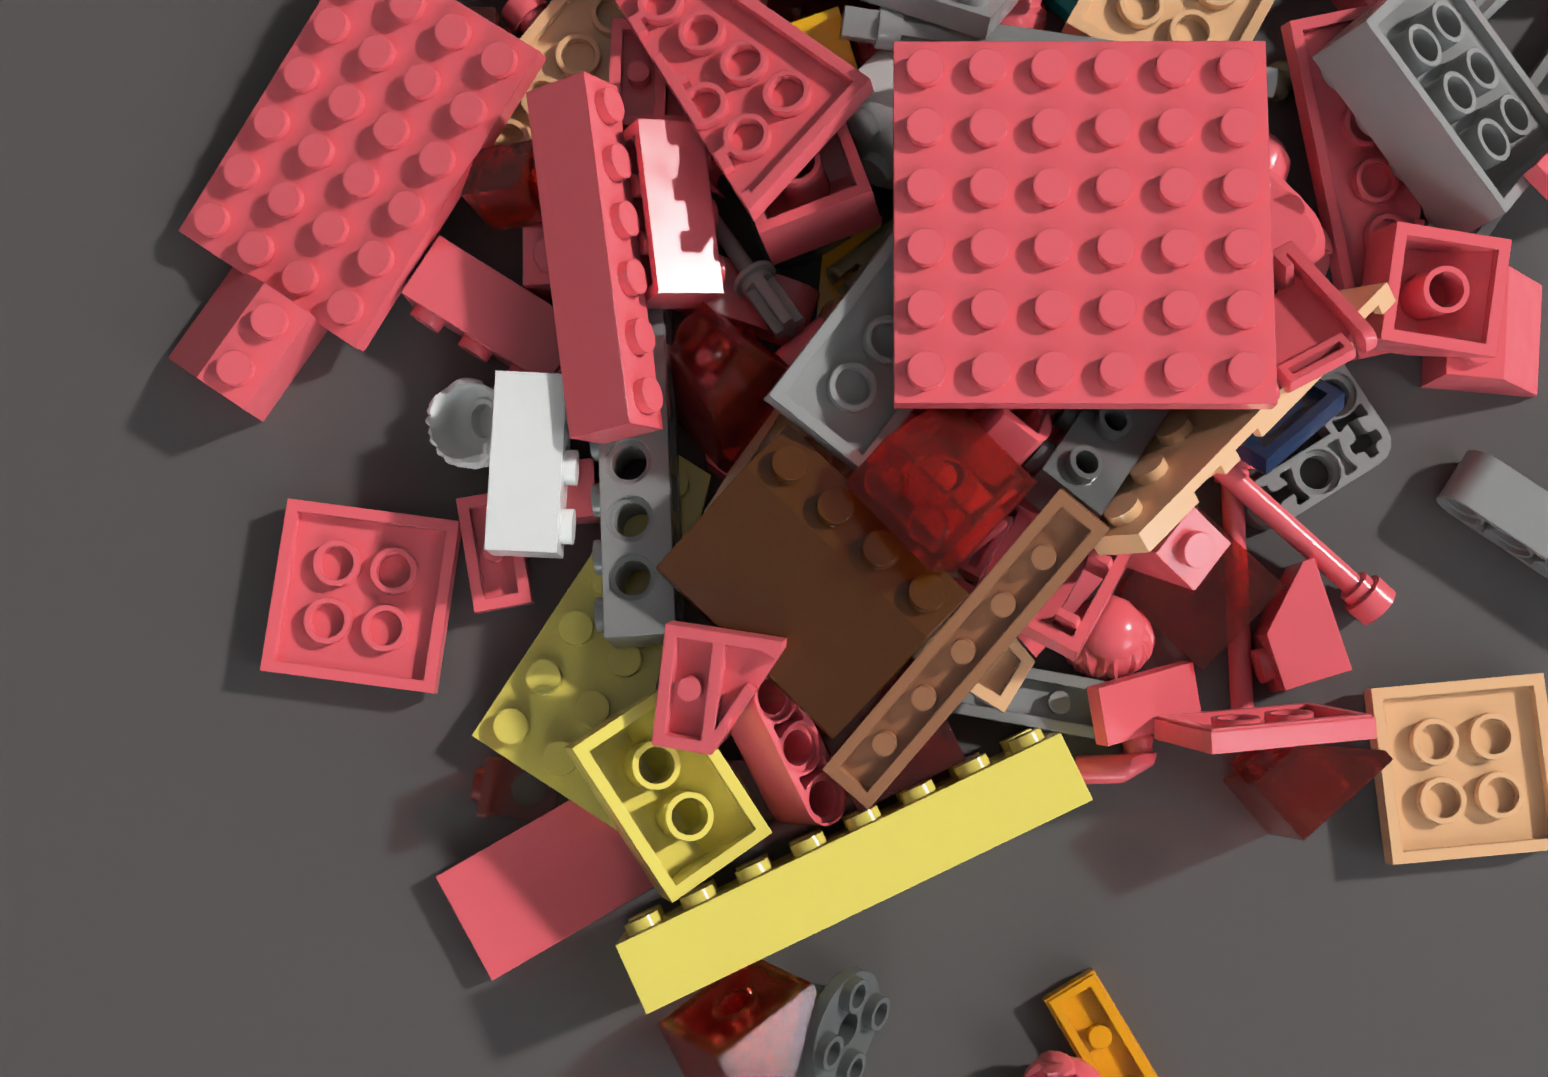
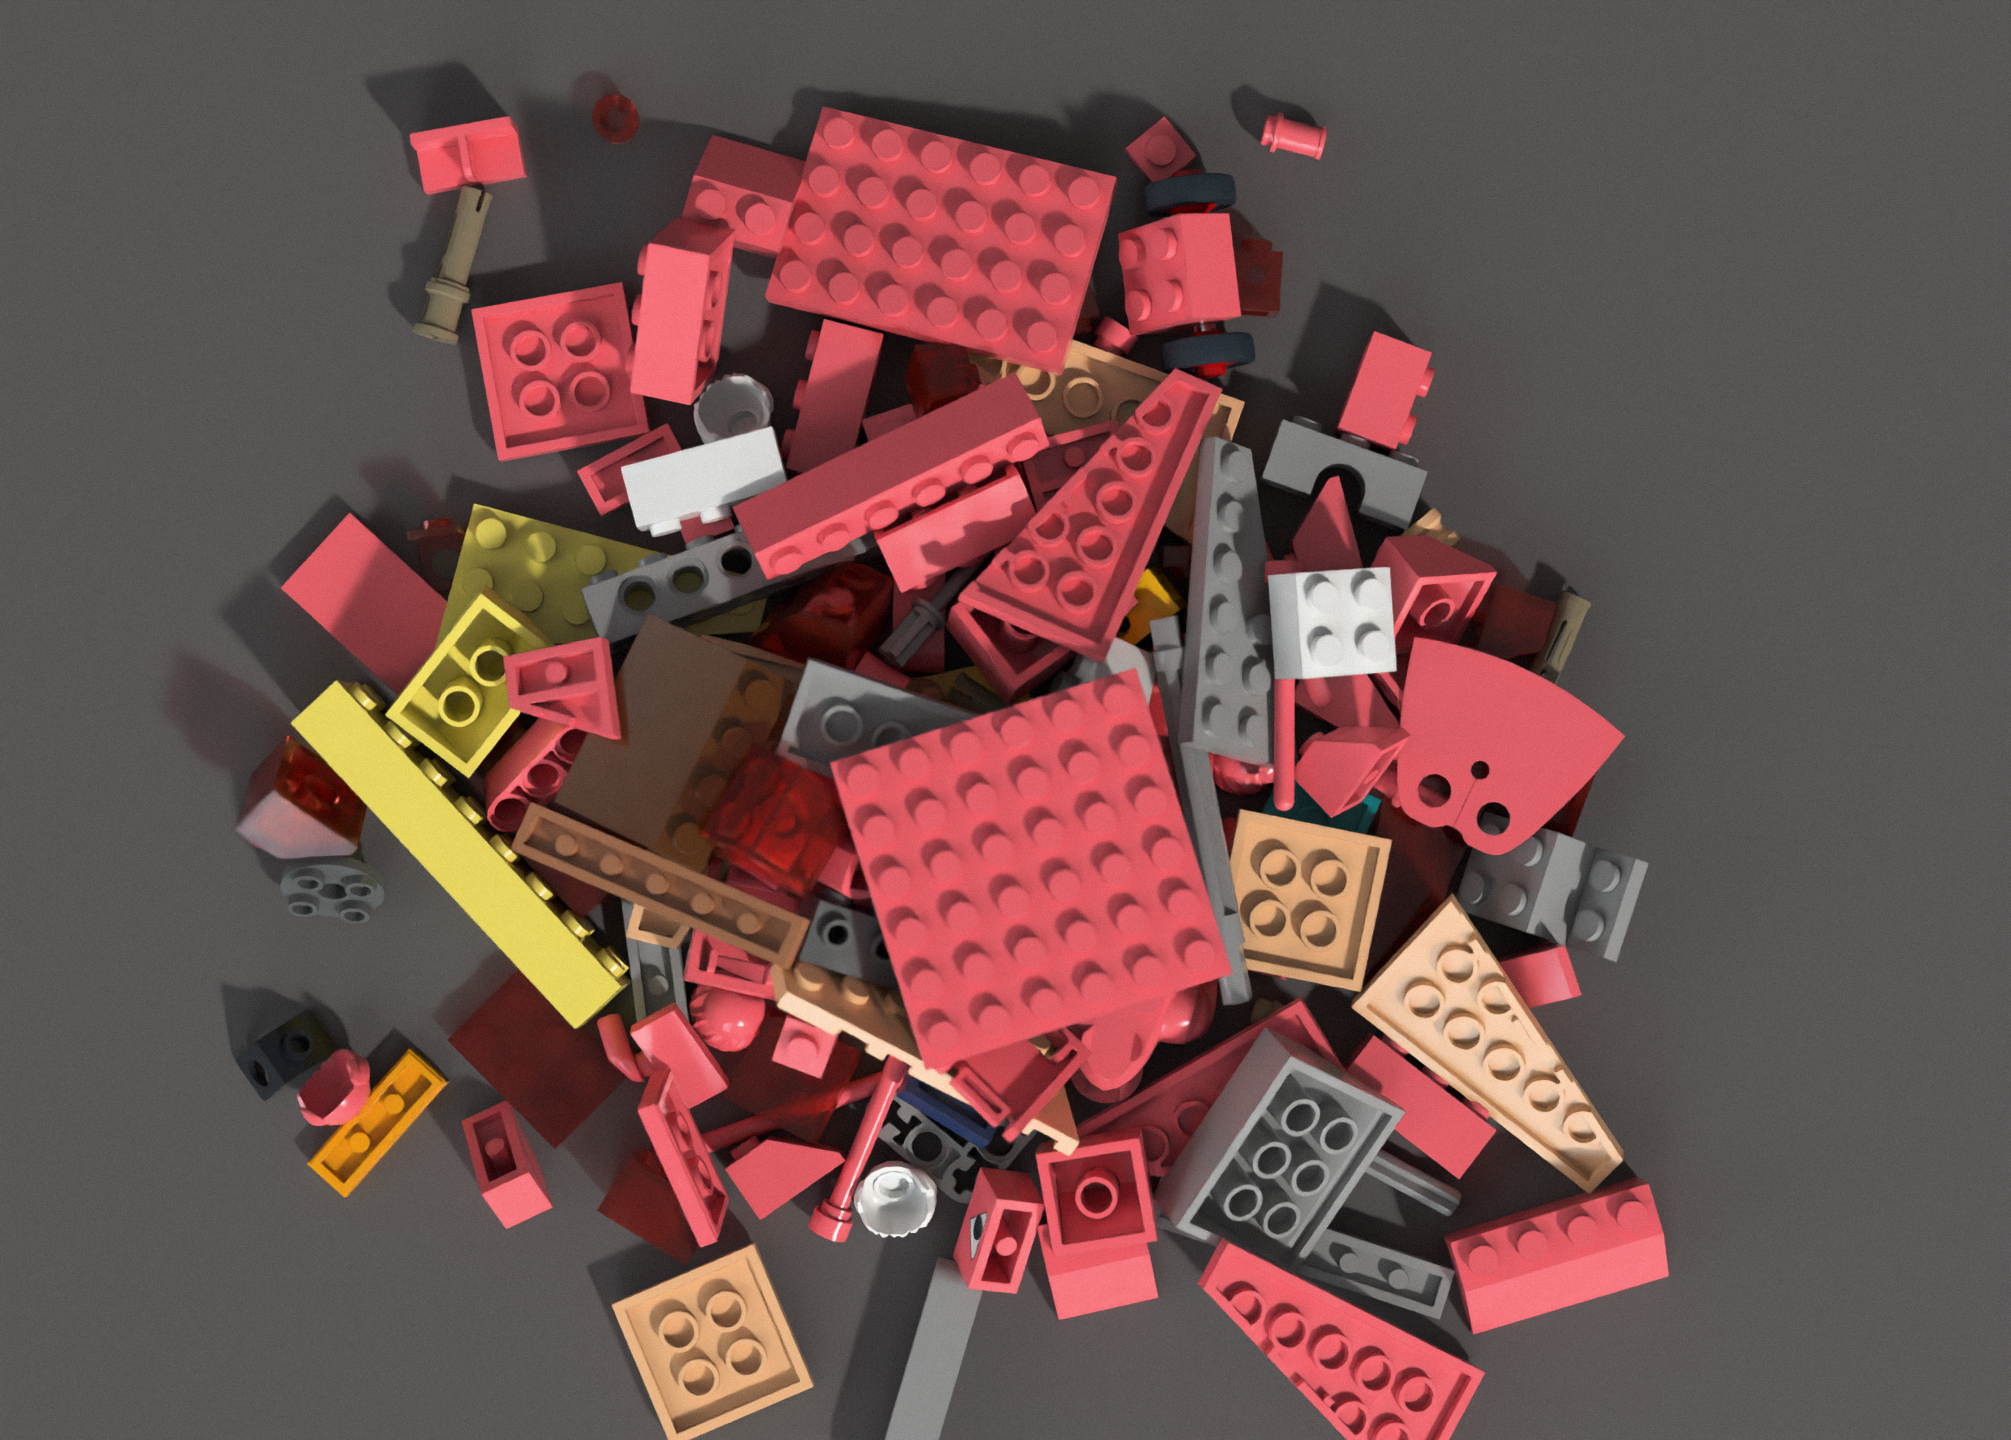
camera: 75 degrees right, 5 degrees up
(91, 620) = (469, 155): none -> coral panel
(99, 439) = (601, 115): none -> clear red bush
(229, 689) = (449, 289): none -> dark tan pin
(335, 435) = (680, 310): none -> coral brick
(1097, 862) = (537, 1059): none -> clear red plate
(1205, 933) = (506, 1165): none -> coral slope
(1366, 520) = (895, 1199): none -> white hair
(1437, 417) = (998, 1230): none -> coral brick

